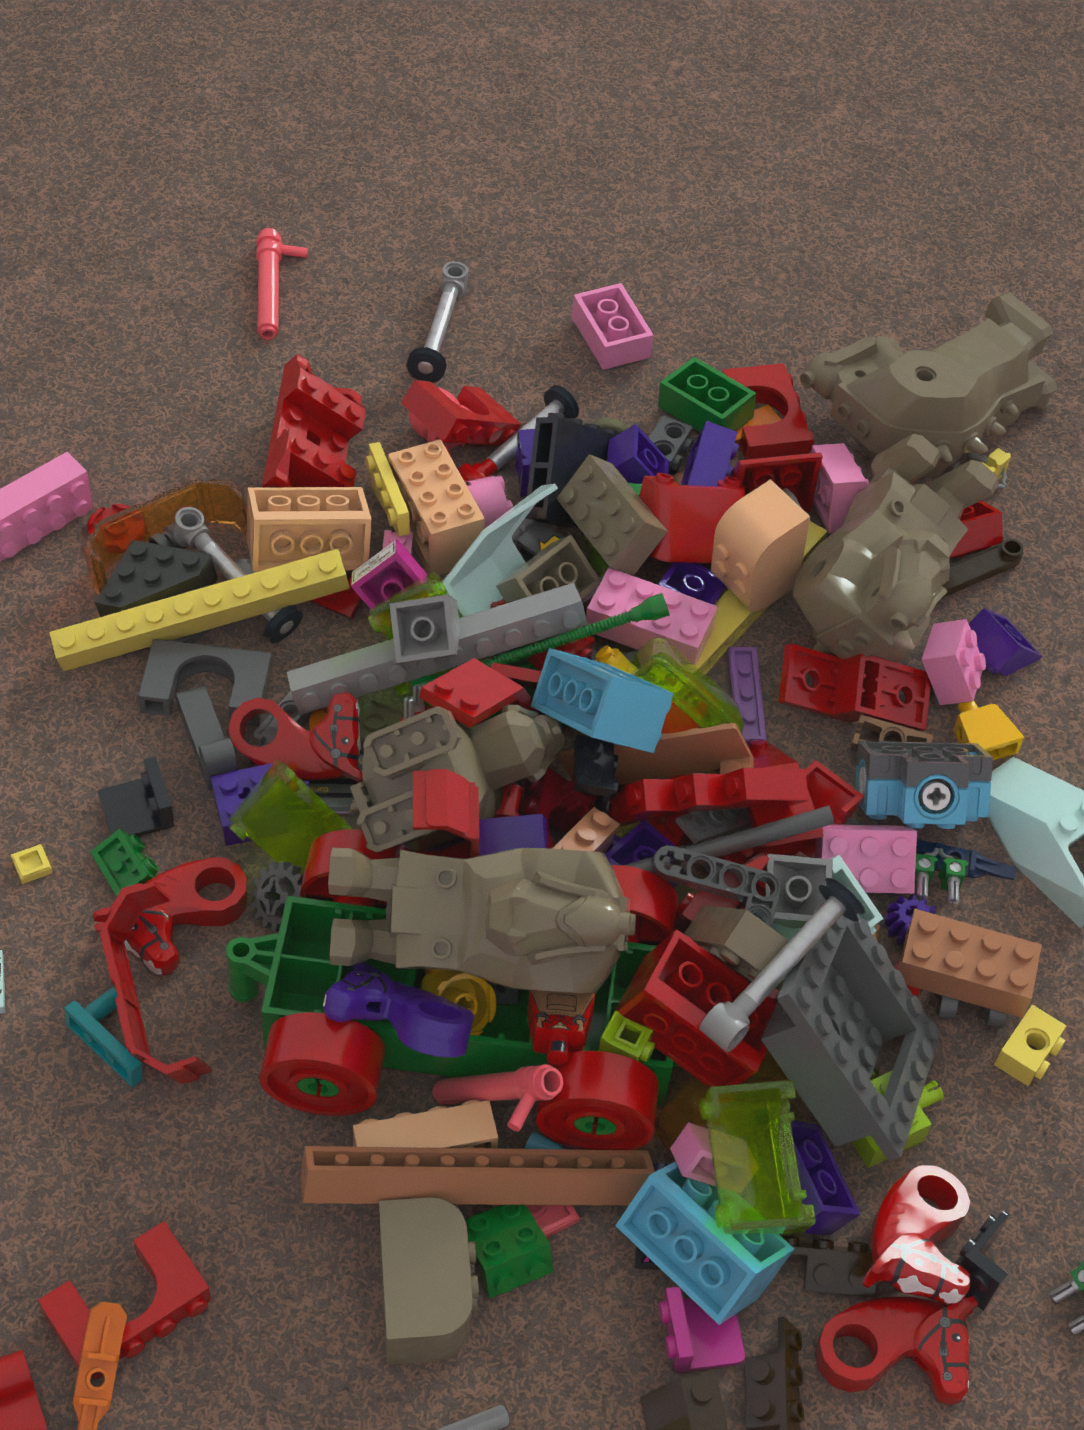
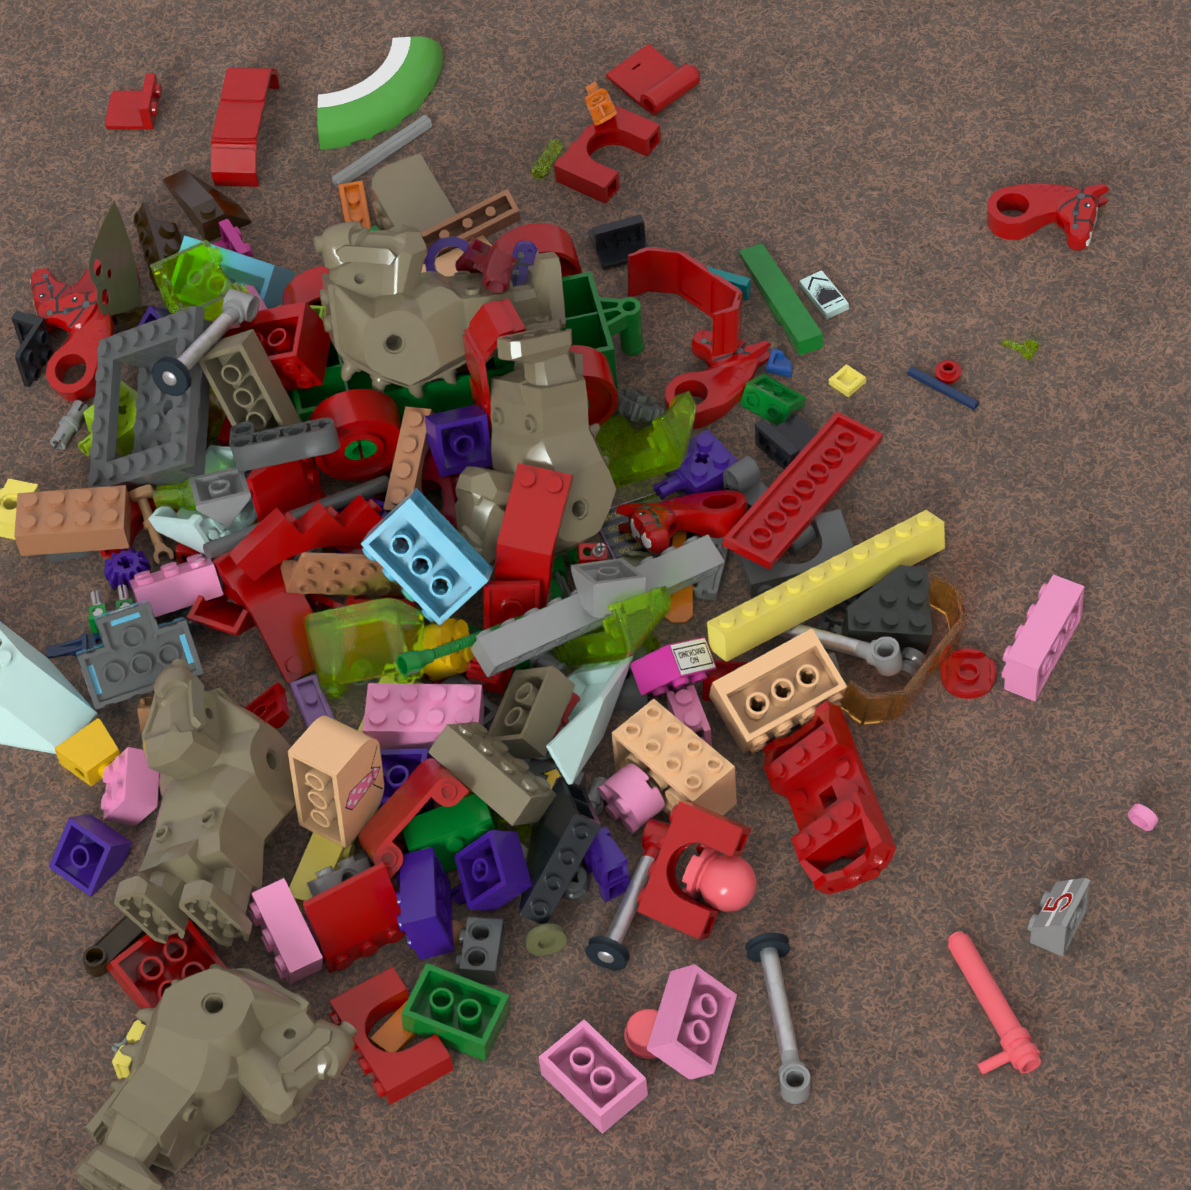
camera: 170 degrees right, 0 degrees up
(39, 990) = (782, 300): none -> green slope
(56, 360) = (1143, 817): none -> bright pink tile
(87, 907) = (779, 364): none -> blue tile
(161, 724) = (802, 490): none -> red plate
(176, 305) = (1060, 915): none -> light grey slope
(181, 1153) = (617, 240): none -> black bracket
(206, 1335) = (547, 158): none -> clear neon green axle
(387, 490) = (748, 783): light yellow wing -> none
(406, 877) = (488, 260): none -> dark red plate
(494, 1352) = (355, 203): none -> orange tile
(518, 326) = (692, 1022): none -> bright pink brick
(552, 347) = (639, 1031): none -> coral piece
(856, 1285) = (115, 253): none -> olive piece
(949, 1145) = (69, 425): none -> light grey pin

